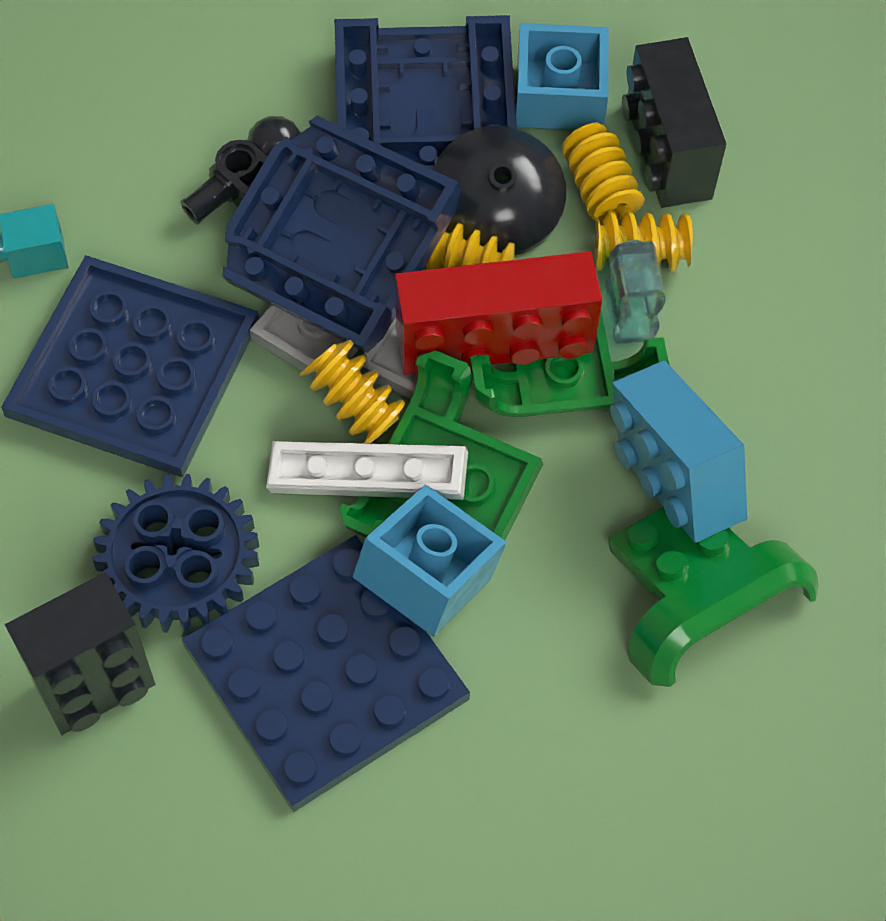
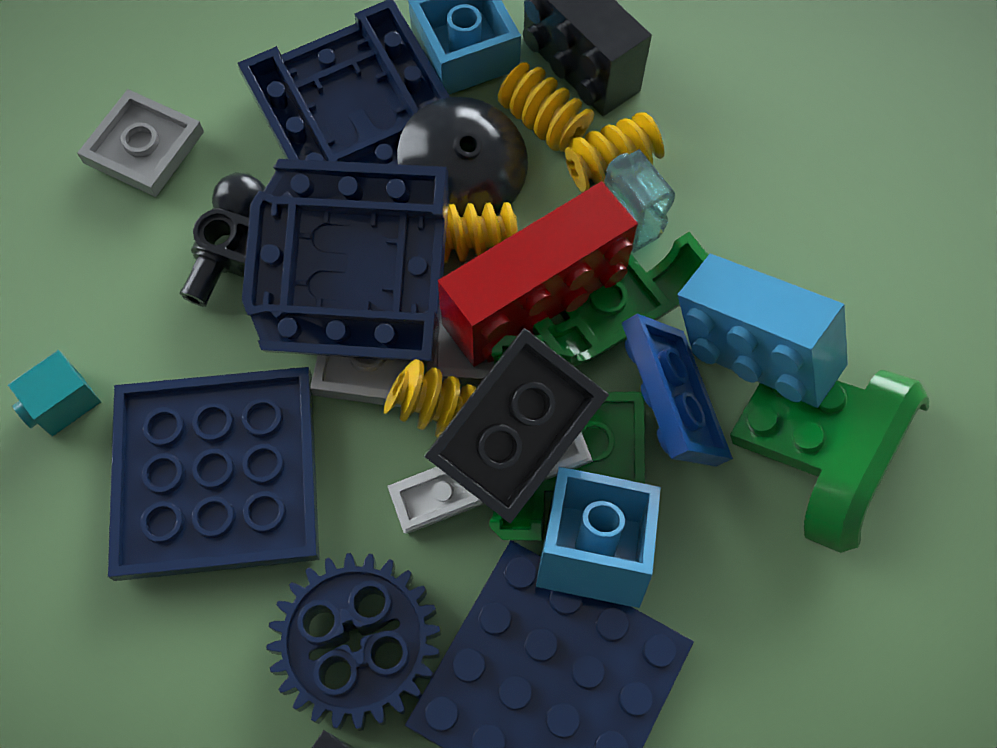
camera: 25 degrees left, 5 degrees up
(216, 57) = (141, 142): none -> light grey plate
(398, 425) = (516, 425): none -> black brick
(573, 474) = (675, 392): none -> blue plate

